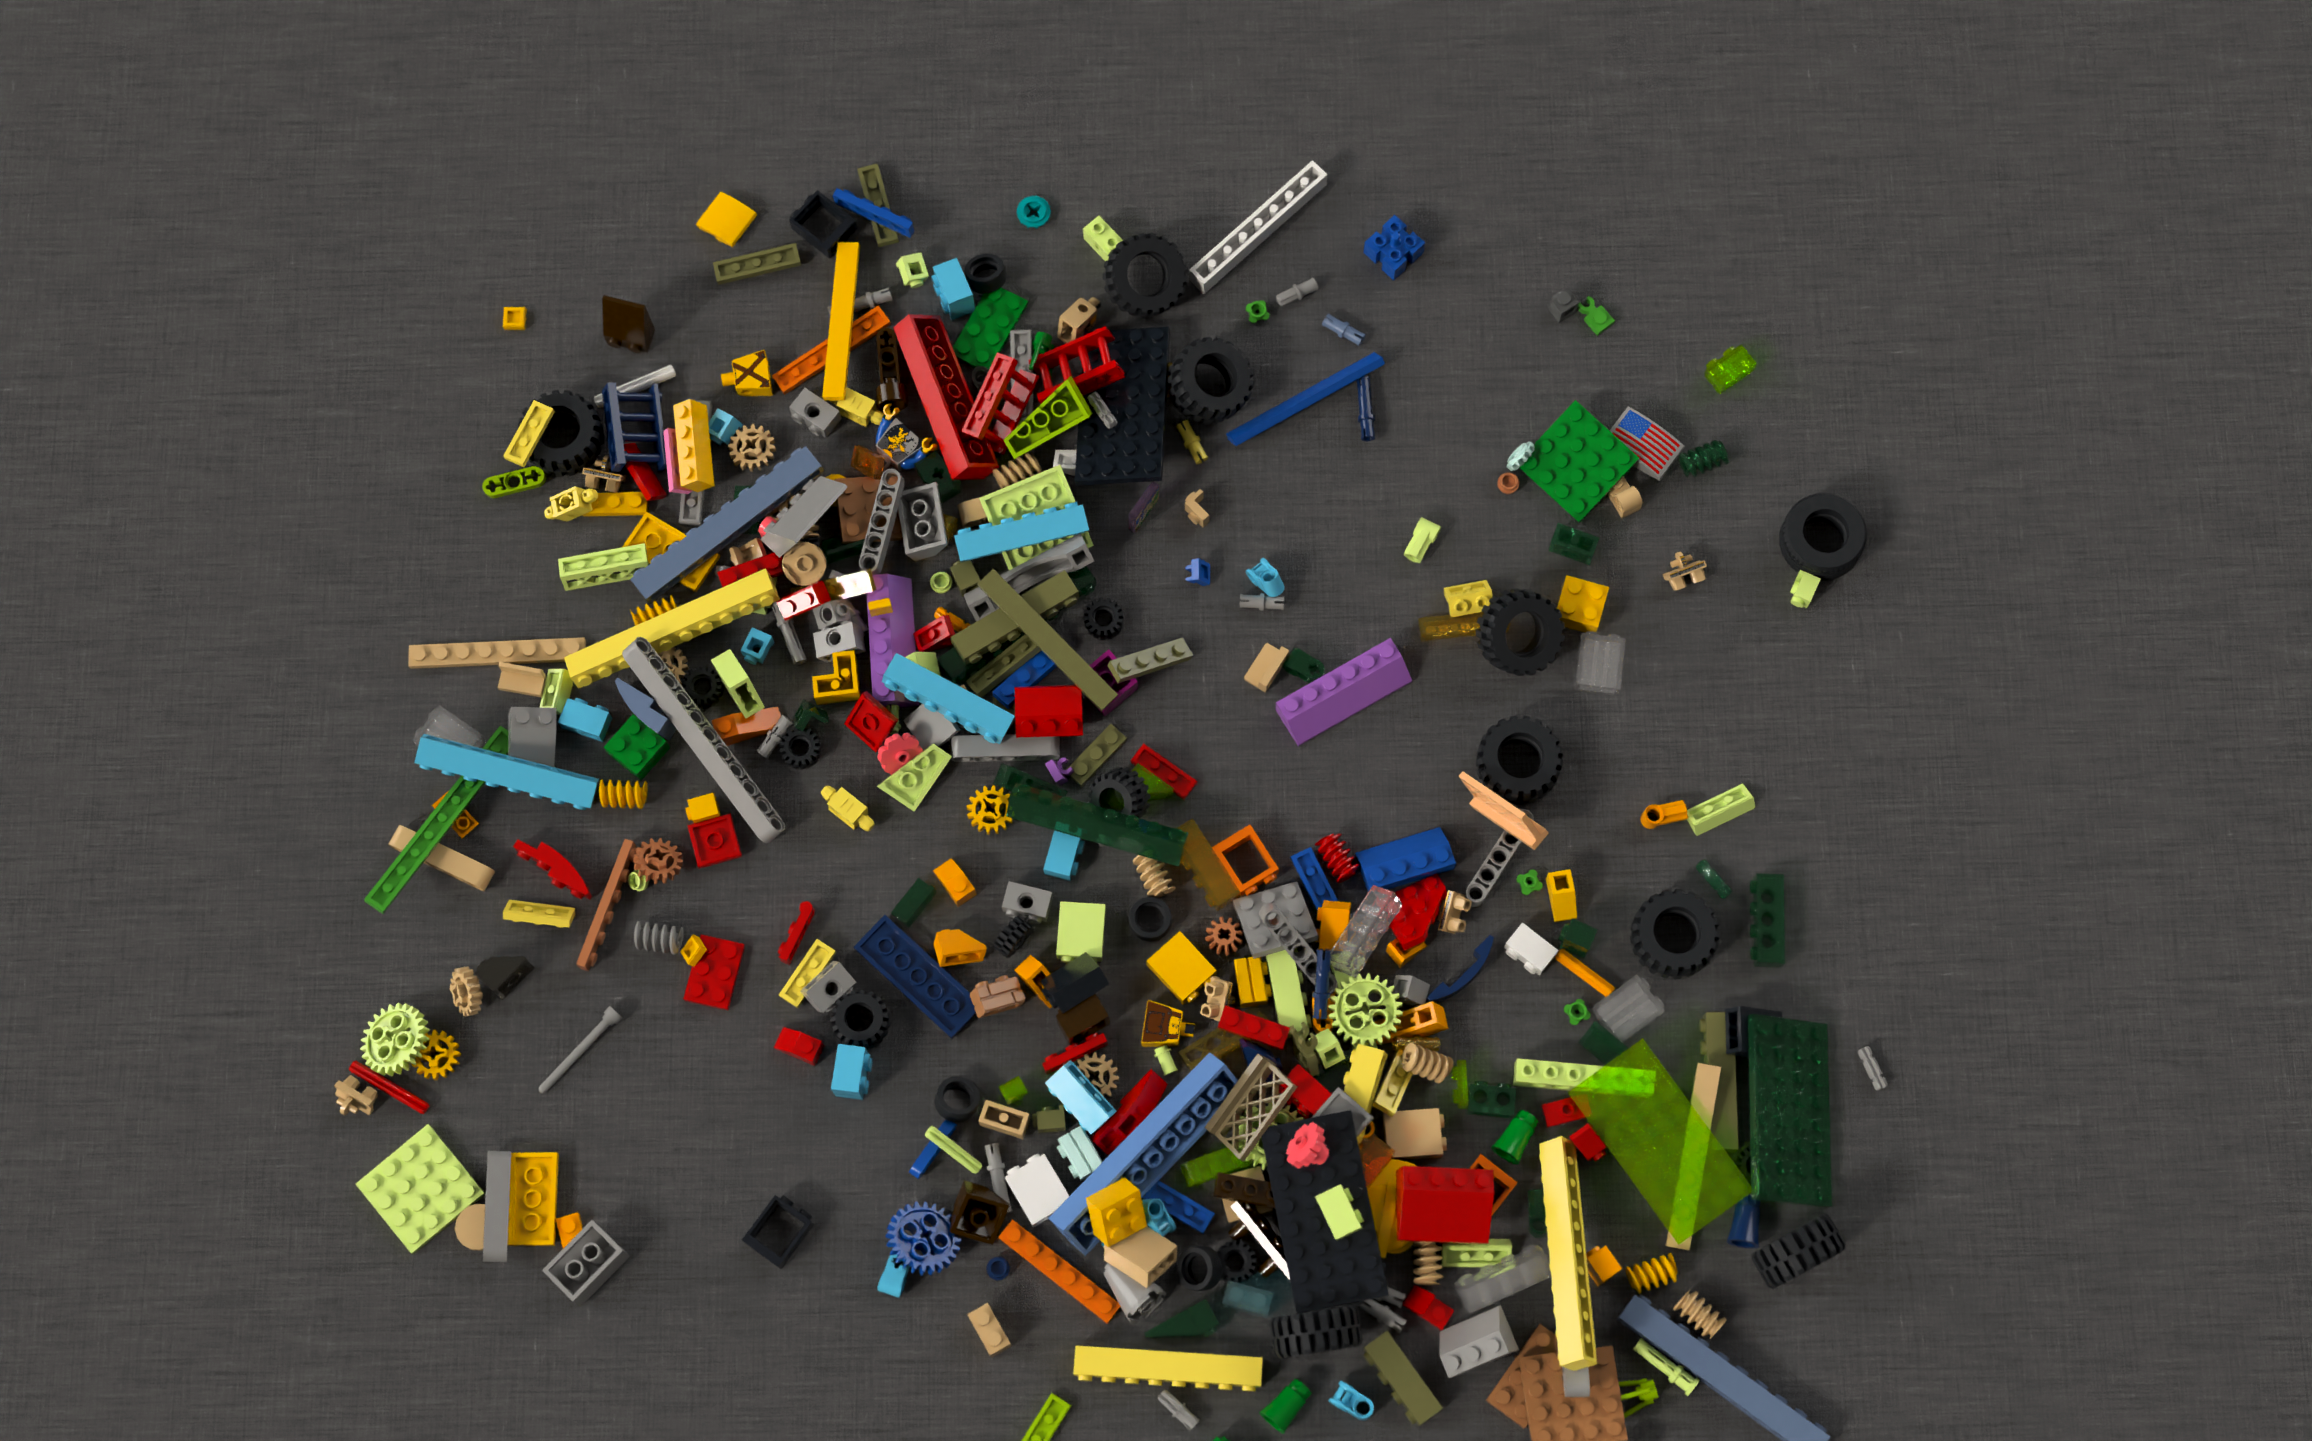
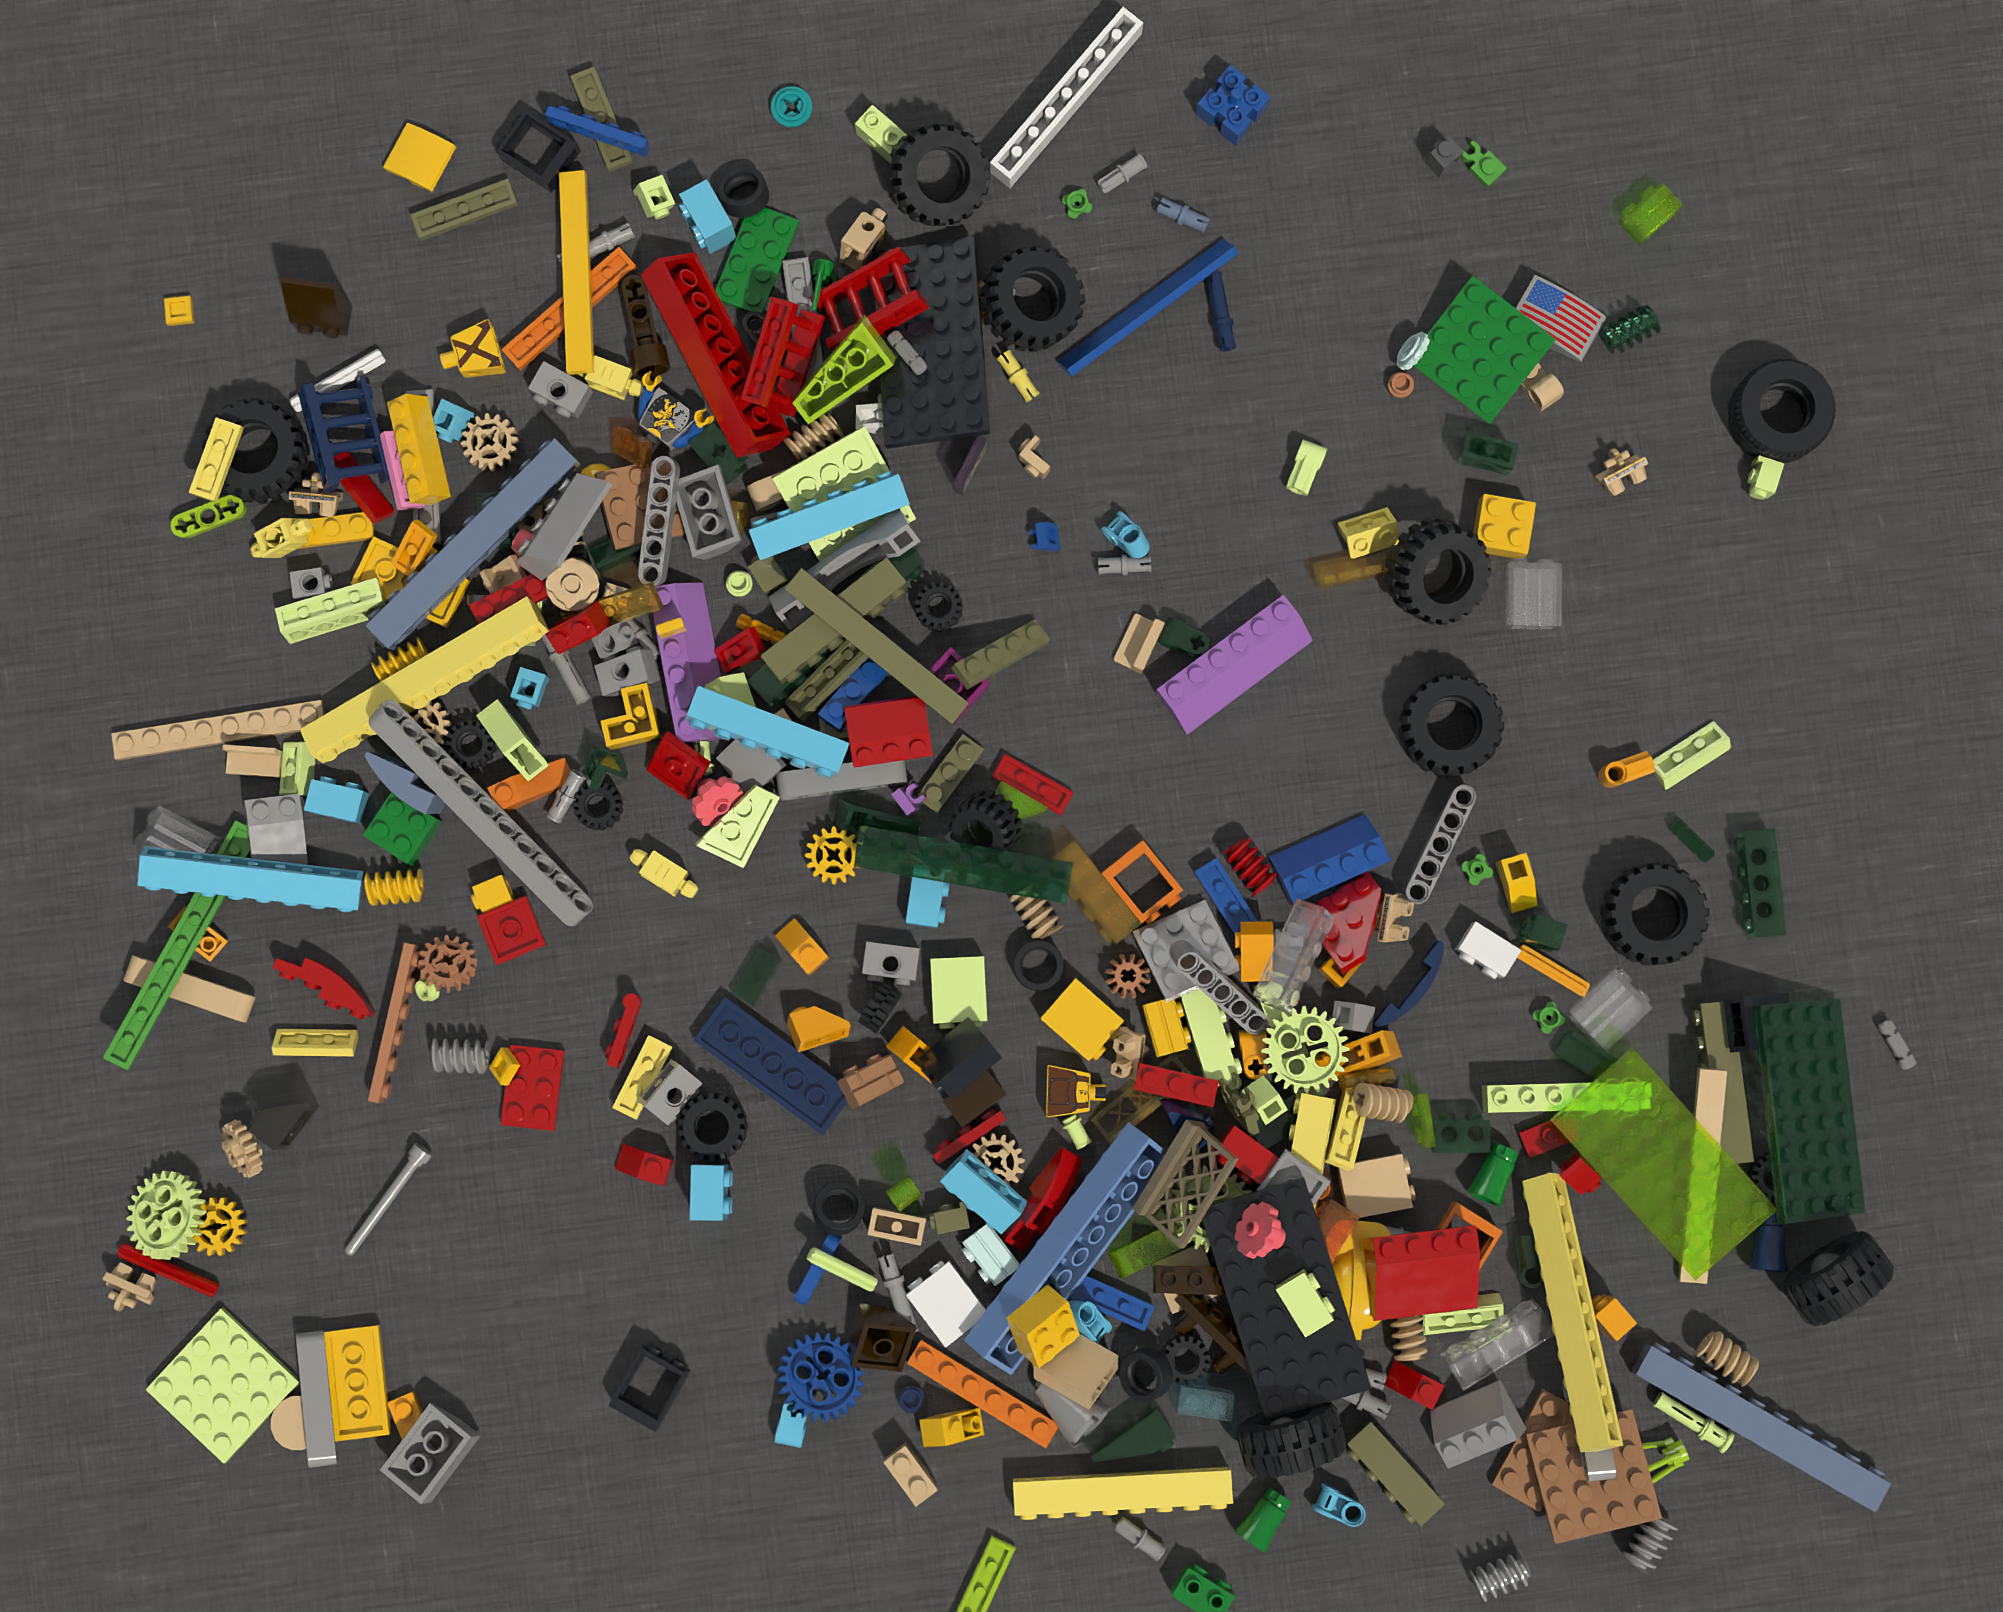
camera: 10 degrees left, 10 degrees up
(582, 538) = (301, 578): none -> light grey brick
(679, 522) = (414, 548): none -> light orange slope
(1029, 1295) = (951, 1427): none -> yellow slope
(1322, 984) = (1251, 1036): dark blue pin -> none
(1504, 813) = (1443, 795): light nougat fence -> none
(1652, 1273) = (1667, 1317): yellow piece -> none

